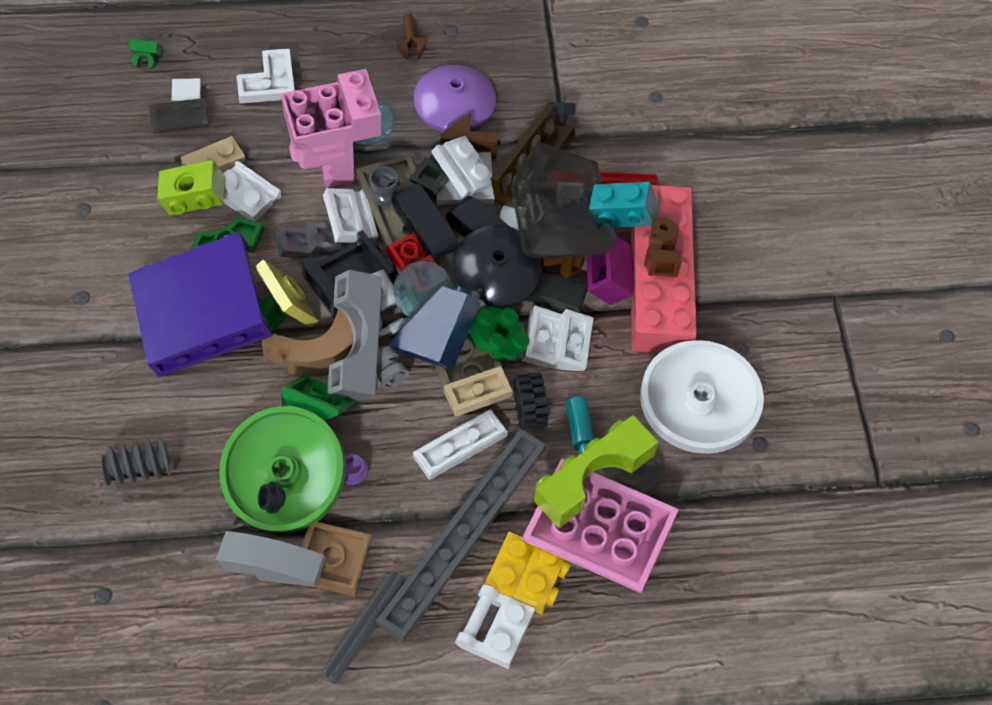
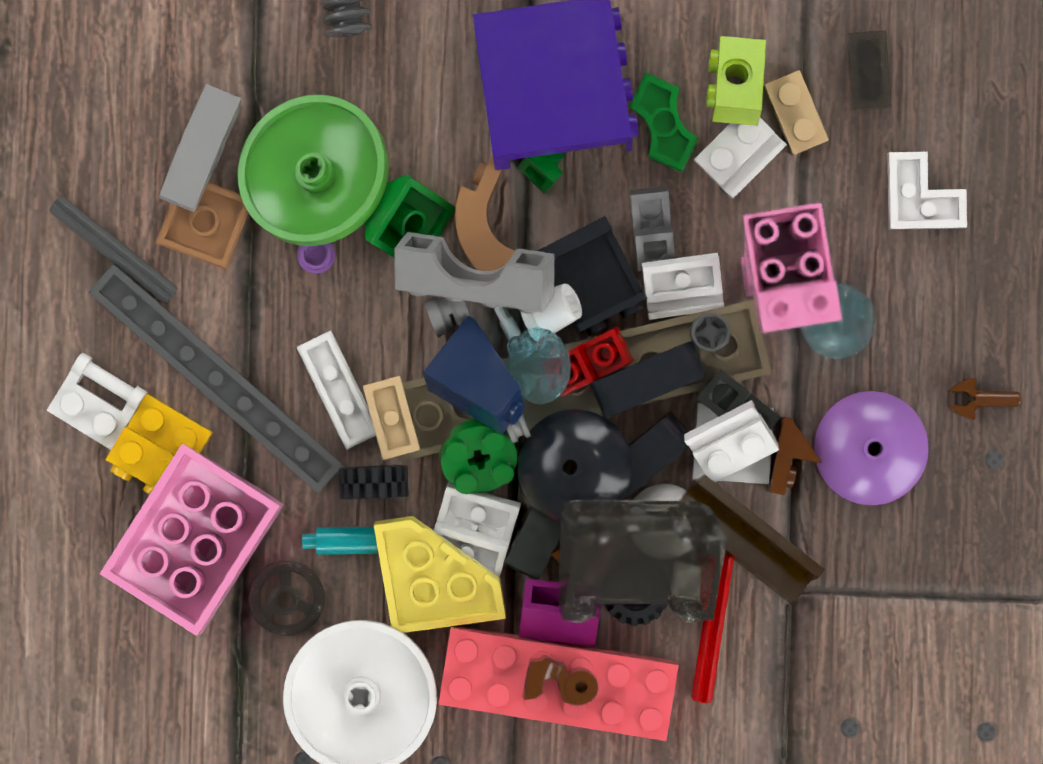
camera: 100 degrees right, 30 degrees up
(145, 49) = (985, 30): green tile -> none
(186, 89) = (912, 82): white tile -> none
(271, 497) = (275, 154): black plate -> none
(287, 293) = (558, 193): light yellow piece -> none
(563, 109) = (829, 590): black tile -> none
(600, 357) = (432, 580): none -> light yellow plate
(624, 204) = (630, 647): teal brick -> none
(624, 447) = (223, 498): lime arch -> none

